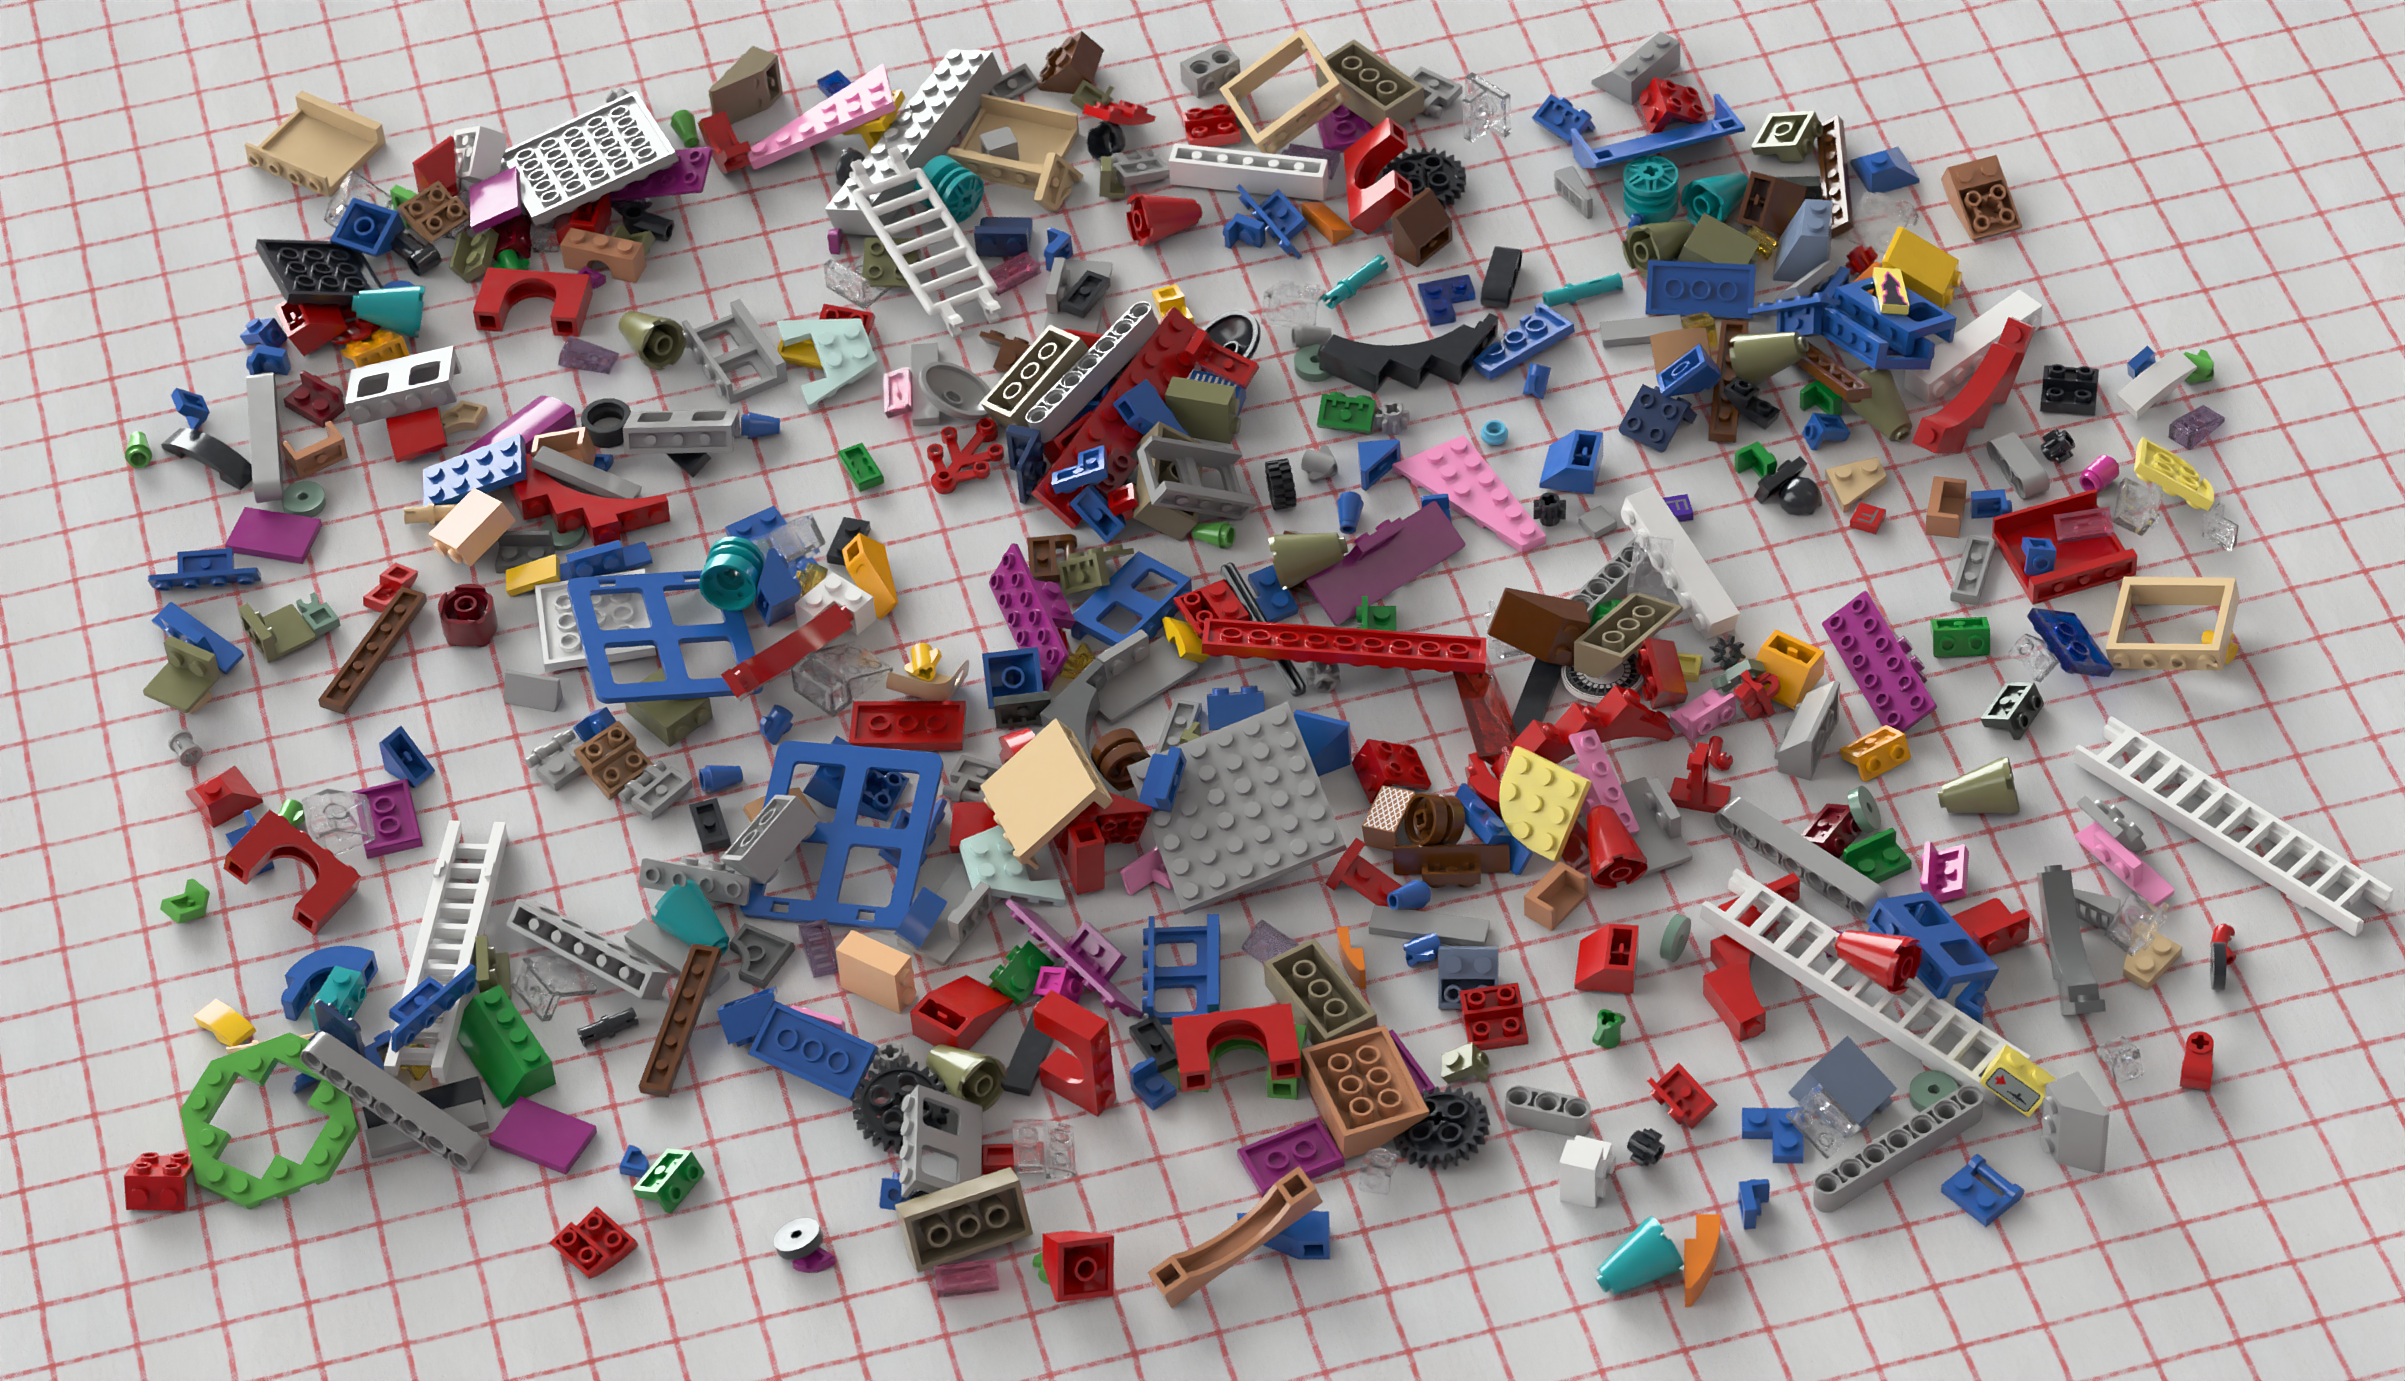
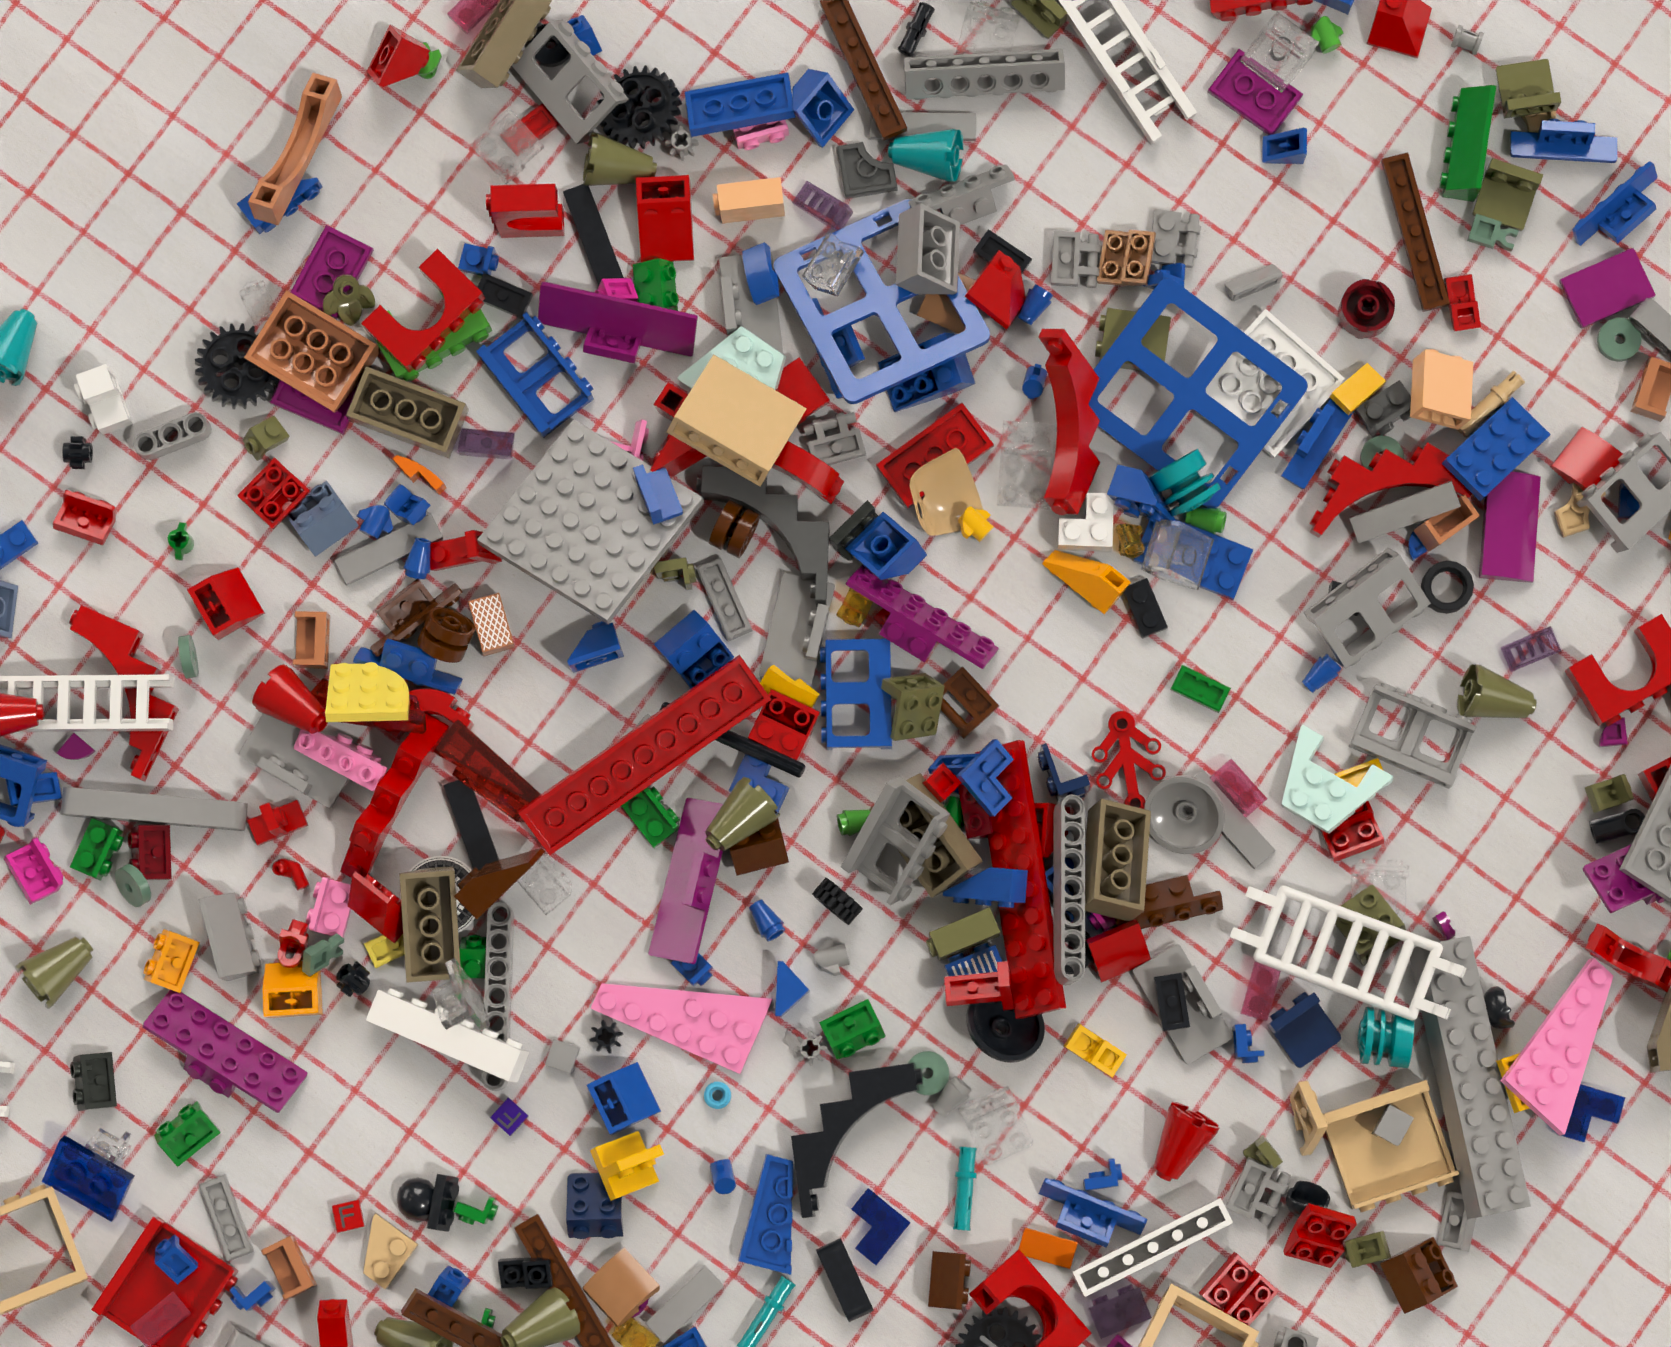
camera: 145 degrees right, 35 degrees up
(264, 670) = (1468, 142): none -> green slope
(622, 256) = (1618, 761): nougat arch -> none
(739, 789) = (999, 289): none -> red slope
(855, 875) = (832, 265): none -> clear bracket
(1291, 1119) = (348, 303): none -> olive plate
(1383, 936) = (406, 506): none -> blue bracket
(1388, 764) = (527, 675): red bracket -> none
(1607, 414) = (626, 1165): none -> yellow bracket
(1689, 374) = (589, 1253): blue slope -> none

